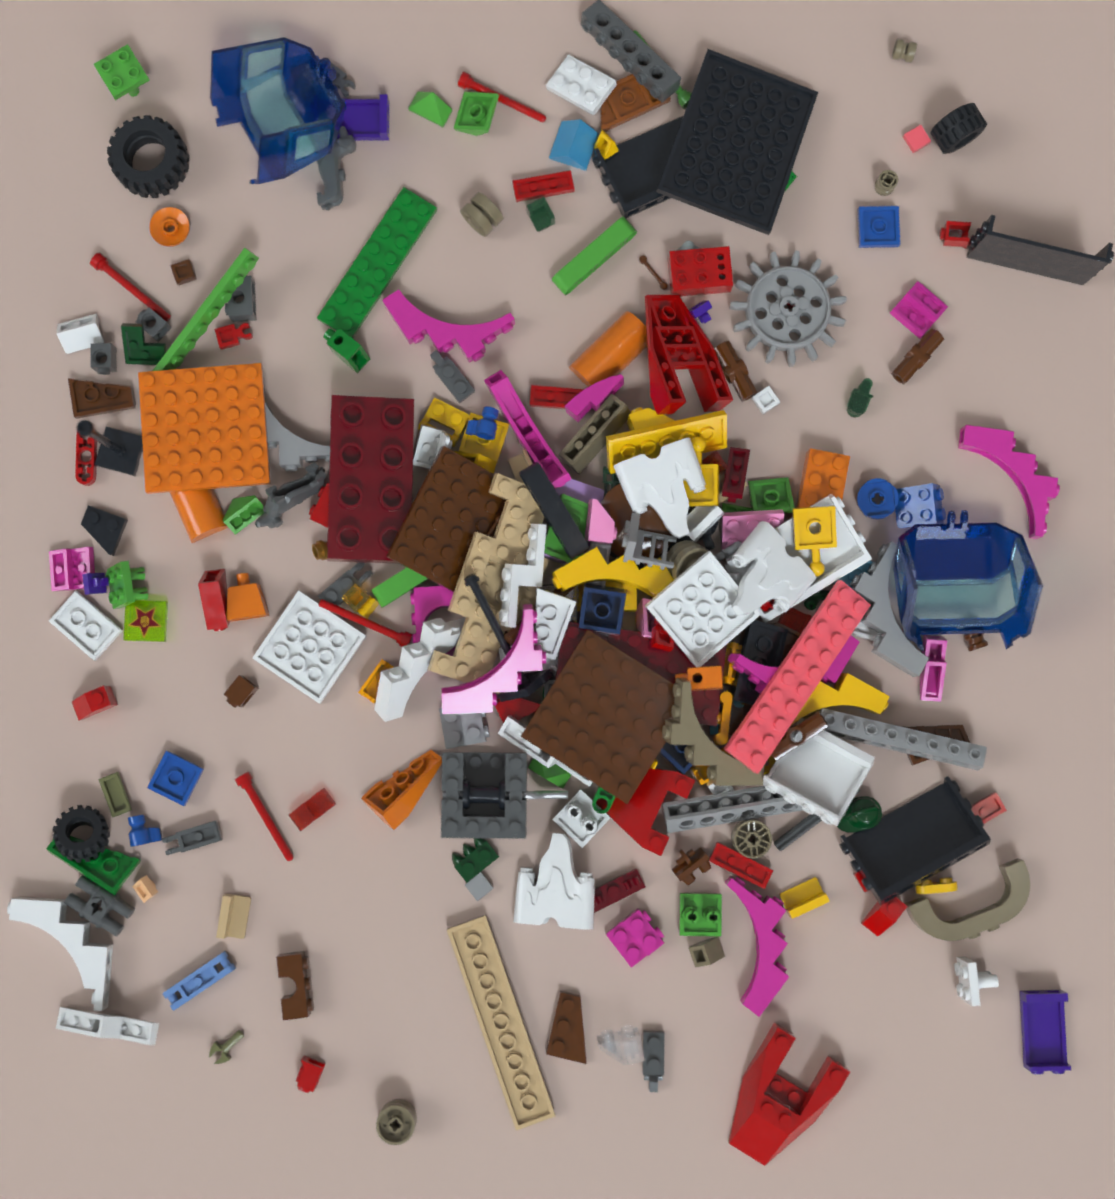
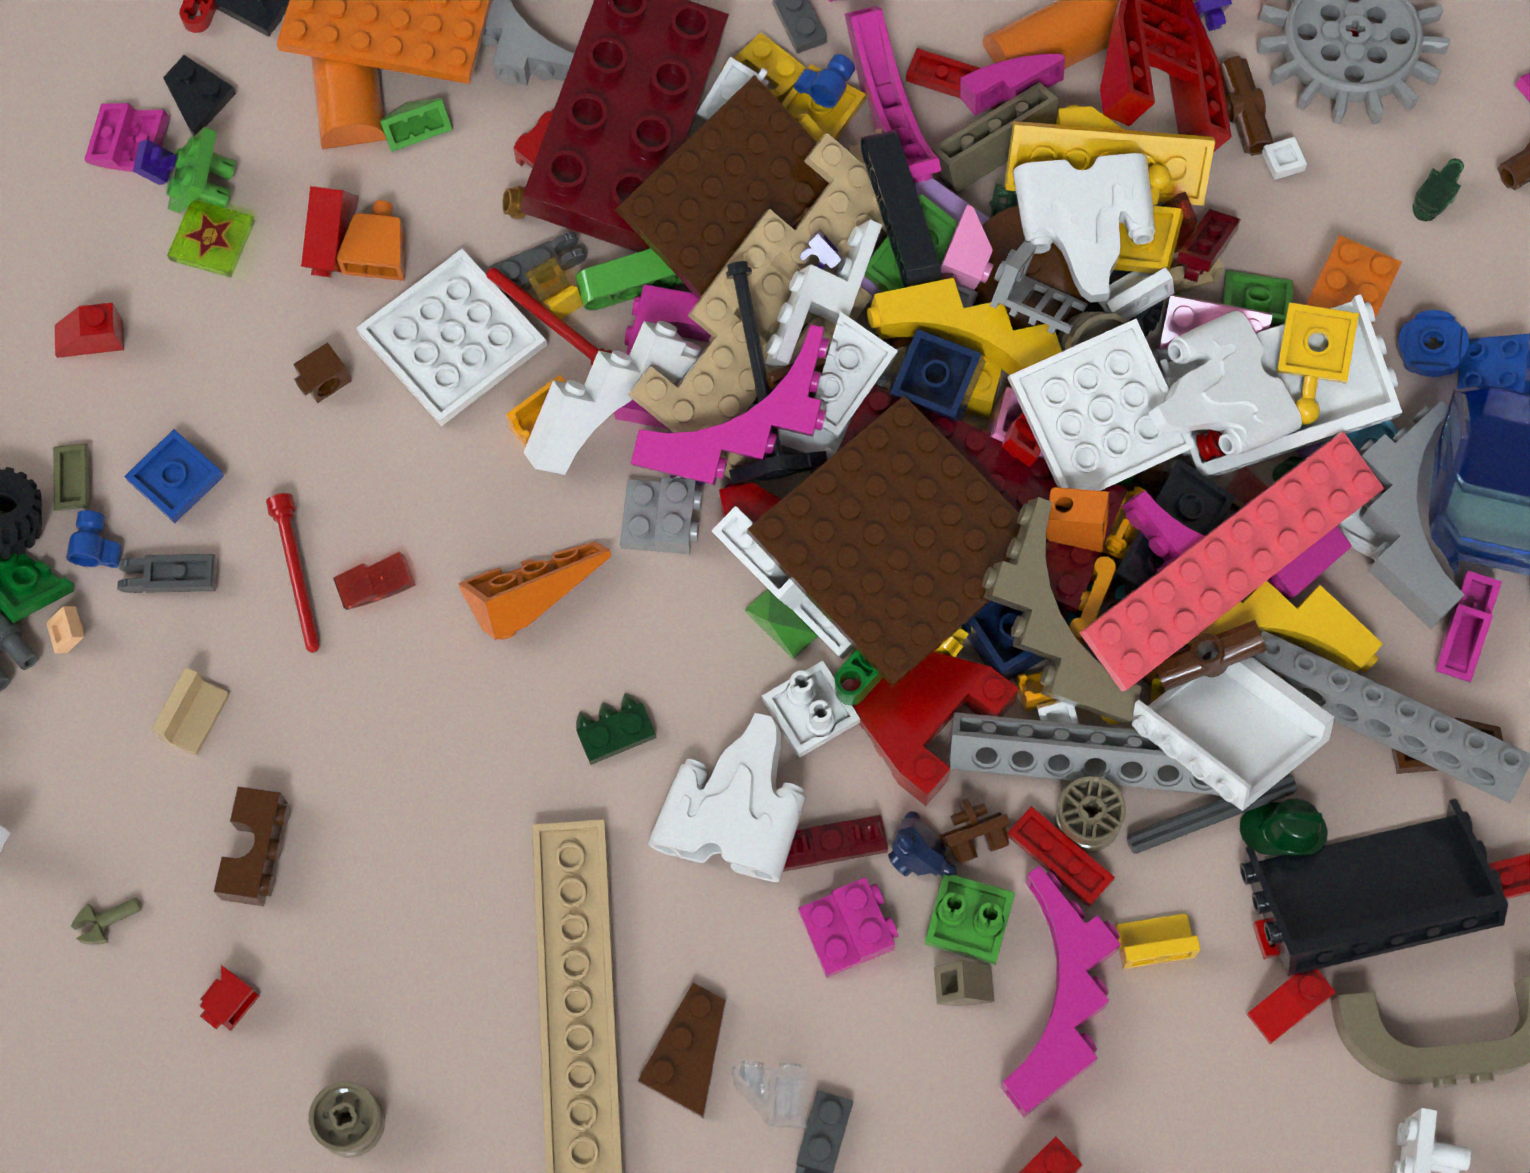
camera: 20 degrees right, 15 degrees down
(85, 625) = (117, 222): white tile -> none
(199, 981) = (98, 798): medium blue plate -> none
(290, 495) = (493, 108): dark grey animal -> none
(479, 886) = (608, 774): light grey tile -> none
(487, 795) = (664, 625): dark grey piece -> none
(516, 548) = (824, 249): none -> tile
(663, 883) = (919, 849): none -> dark blue rock
(929, 887) = (1406, 984): yellow plate -> none

